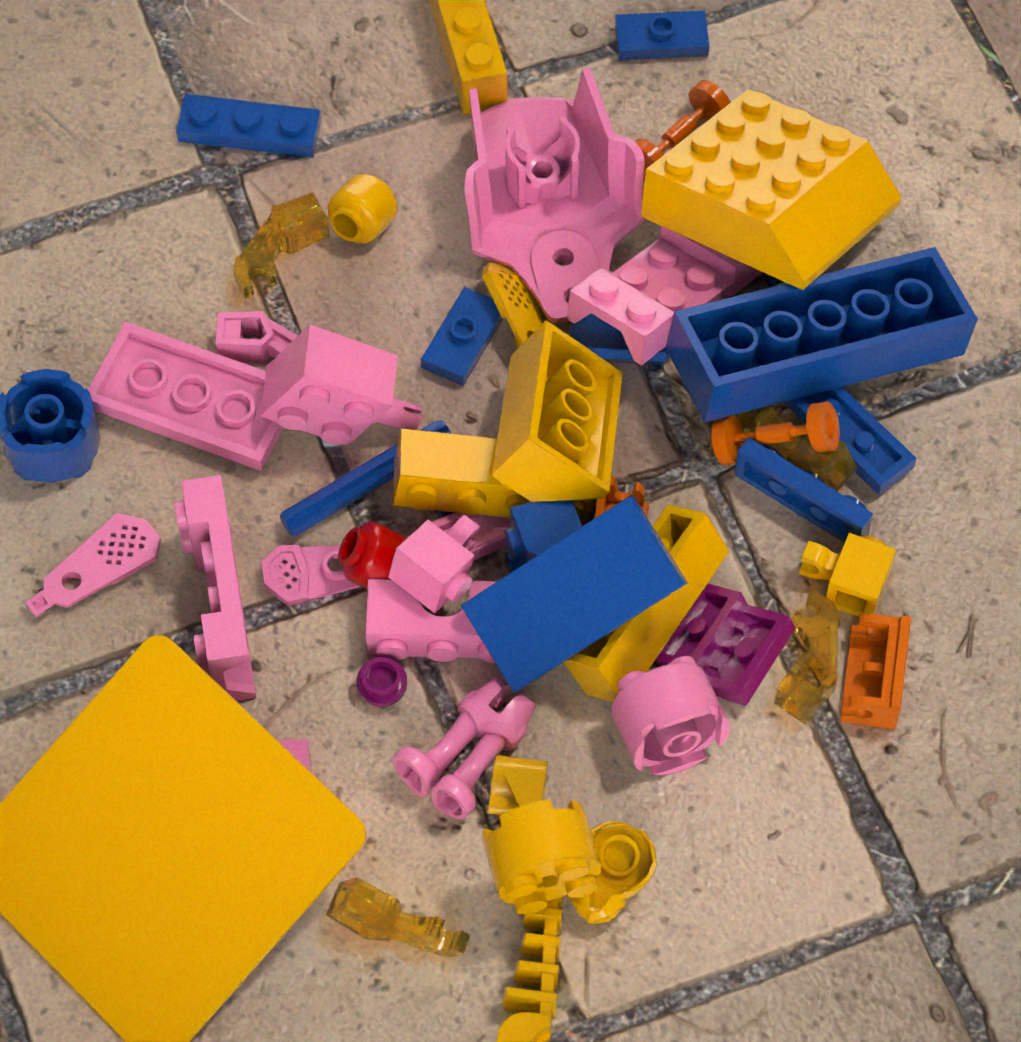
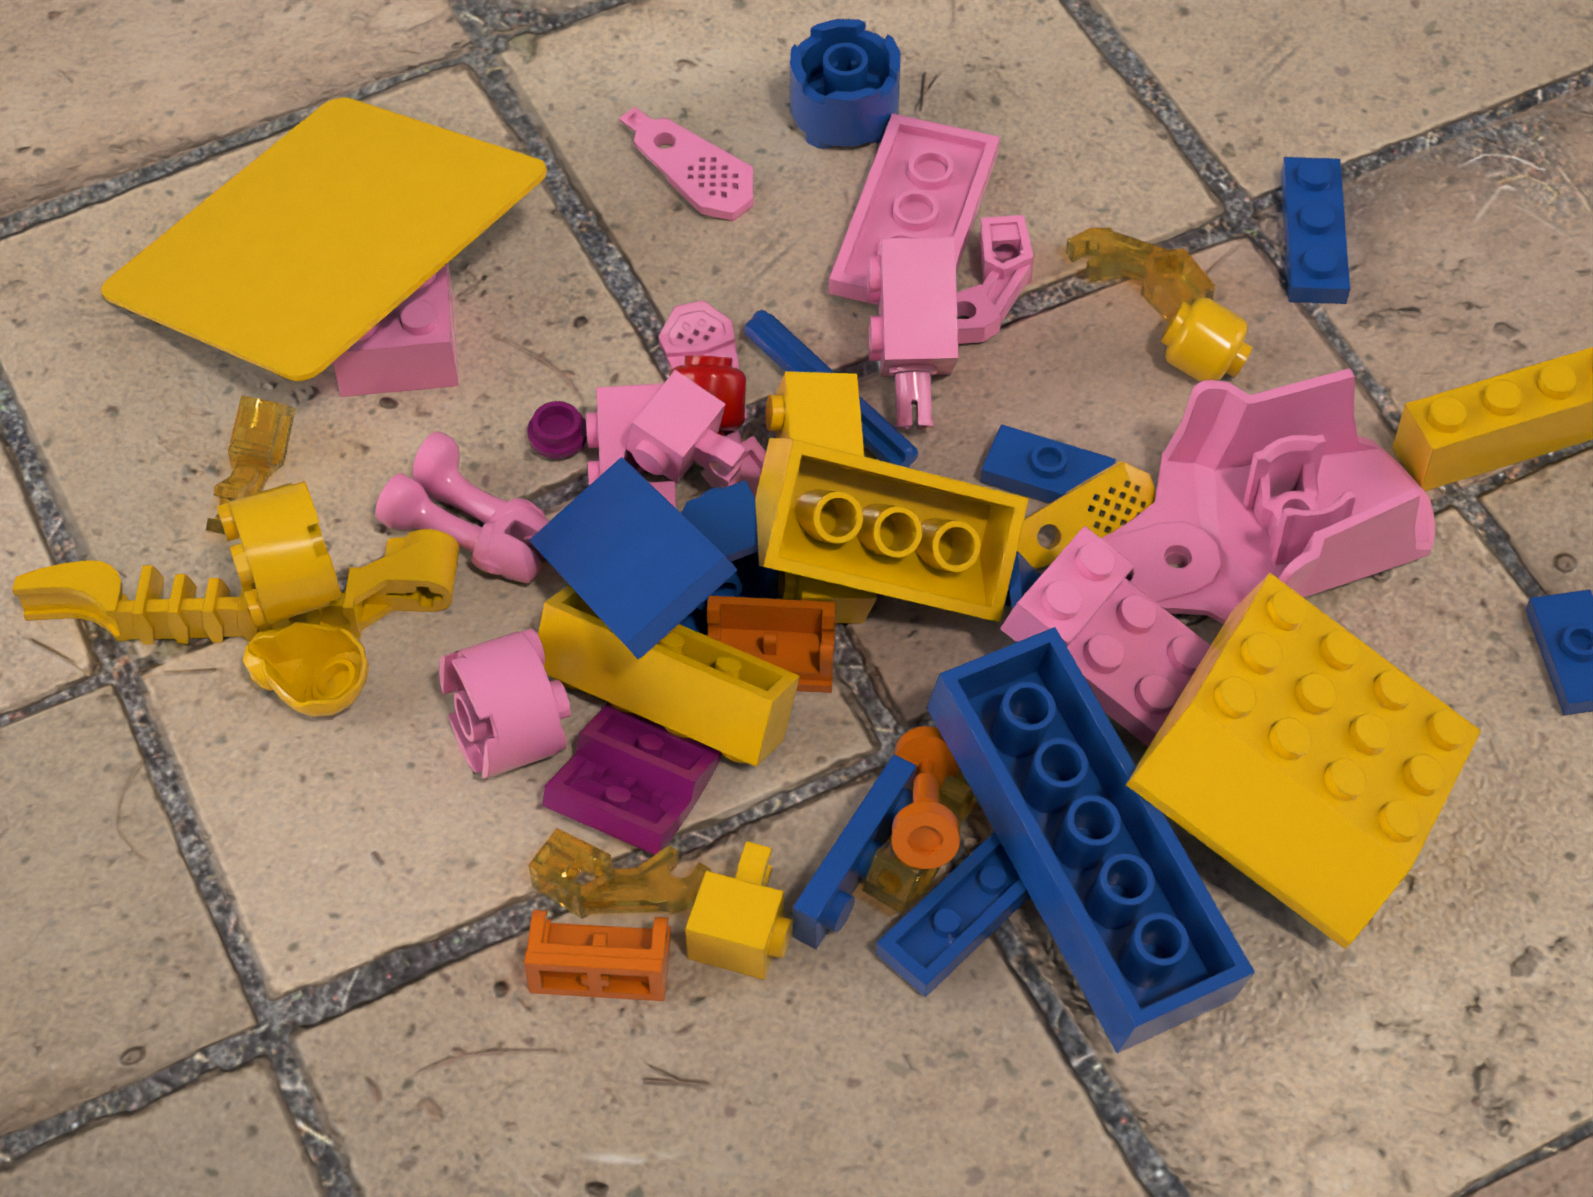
camera: 85 degrees right, 5 degrees down
(207, 534) = (643, 253): bright pink piece -> none
(706, 100) = (1468, 705): orange wheel -> none

